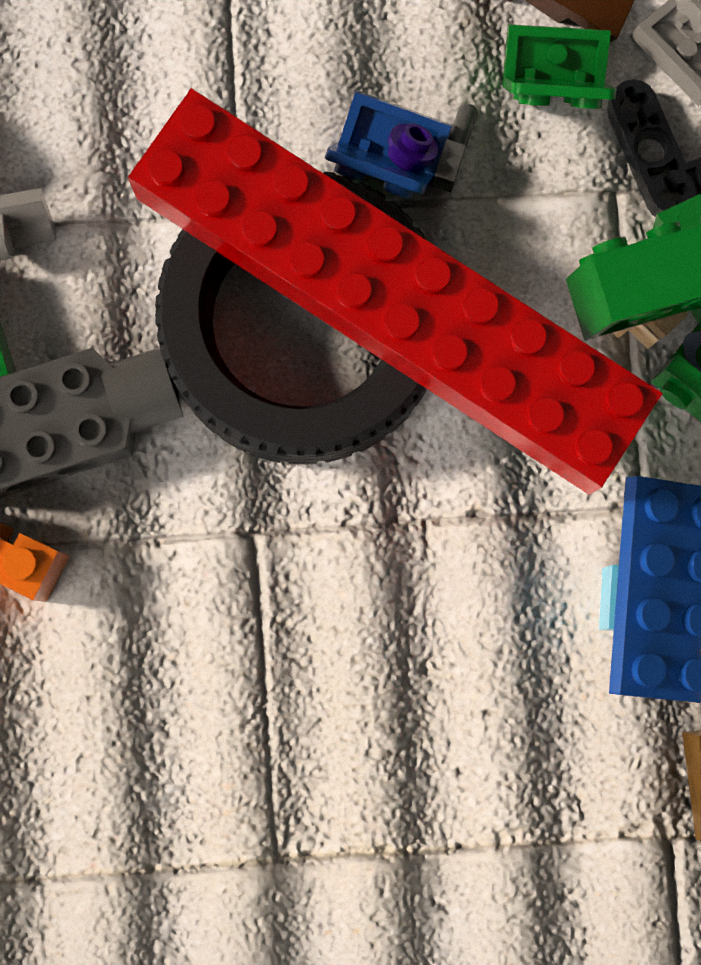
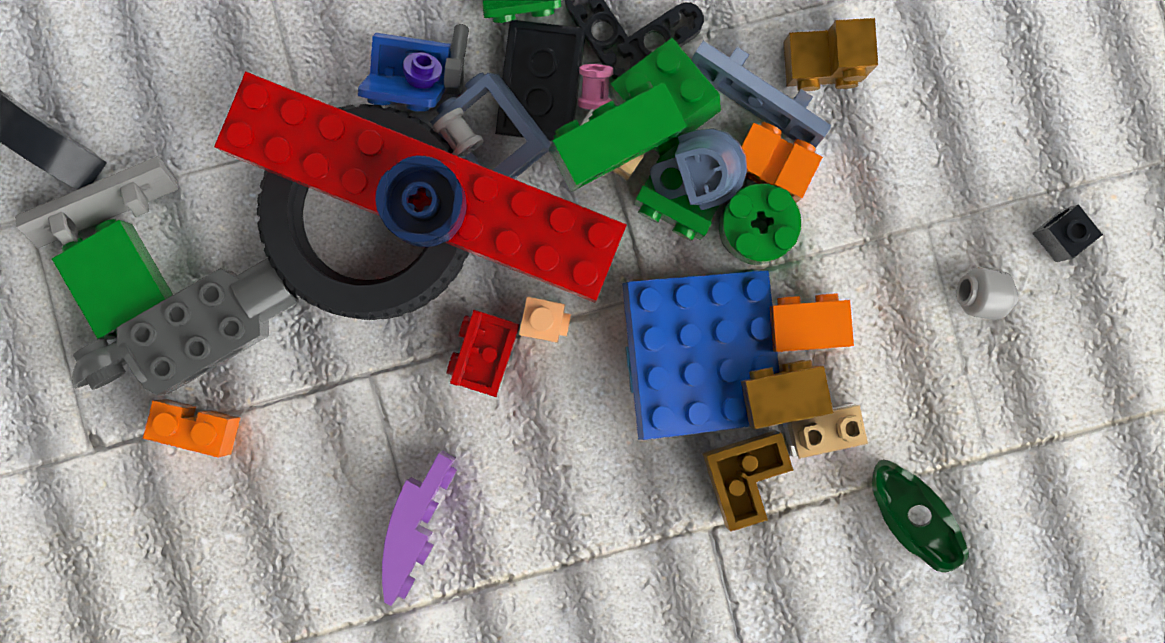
camera: 10 degrees left, 5 degrees up
(260, 768) = (405, 537): none -> medium lavender slope
(375, 276) = (405, 184): none -> dark blue brick
(416, 536) = (483, 352): none -> red bracket
(446, 230) = (458, 133): none -> light grey bush
(477, 186) = (537, 143): none -> sand blue window
(507, 507) = (544, 320): none -> light nougat brick
(559, 195) = (542, 74): none -> black tile
(632, 214) = (594, 85): none -> bright pink bush

